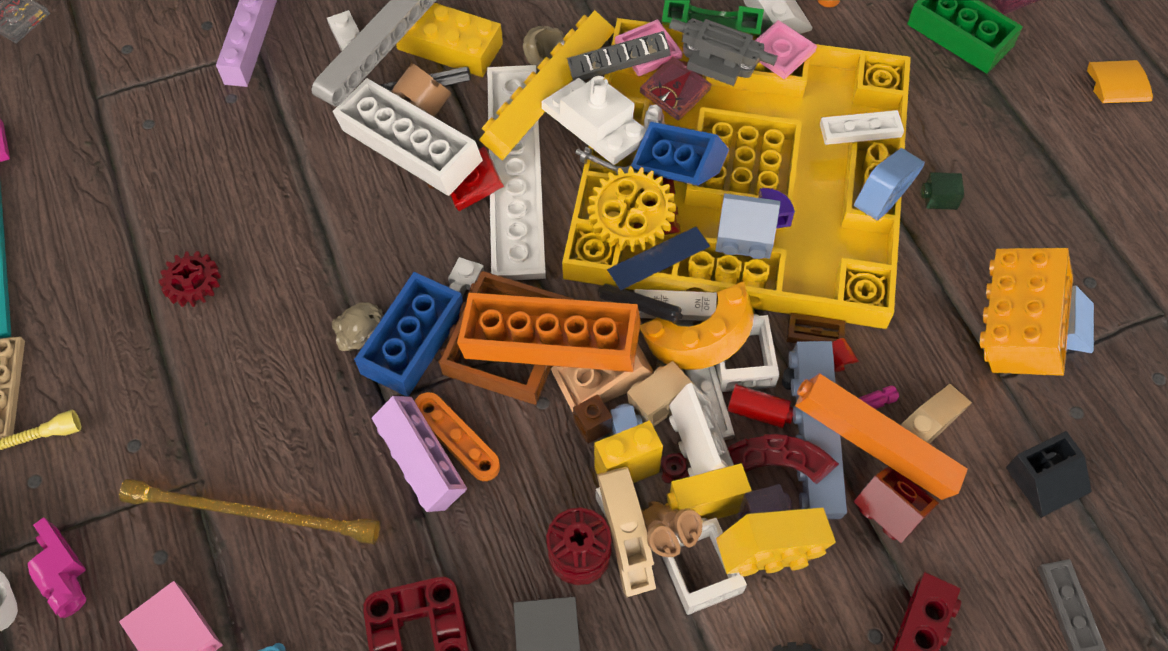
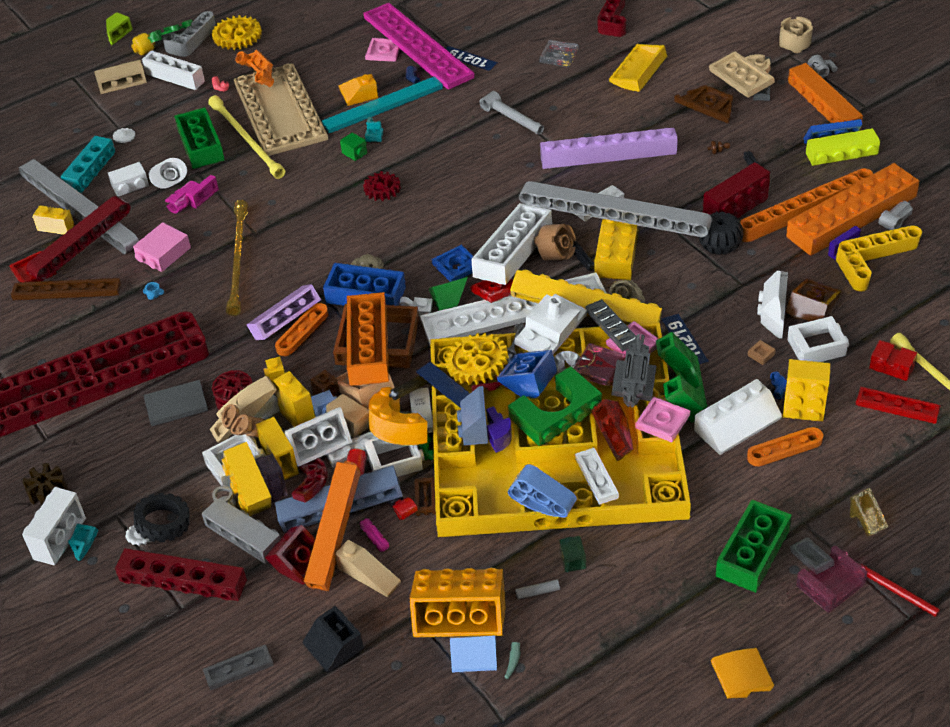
camera: 80 degrees right, 15 degrees down
(47, 272) = (374, 131): none -> teal slope
(75, 301) = (353, 146): none -> green brick
(77, 110) = (493, 101): none -> light grey piece
(402, 202) = (457, 255): none -> blue piece
(455, 237) = (448, 294): none -> green slope
(541, 485) = (274, 368): none -> yellow brick
(645, 14) = (677, 326): none -> dark blue sticker
(739, 113) = (544, 425): none -> green arch
(785, 96) = (614, 427): none -> clear red slope
(833, 575) = (238, 526): none -> light grey hinge
(984, 238) = (537, 589): none -> light grey piece
(1087, 286) = (514, 658): none -> sand green helmet

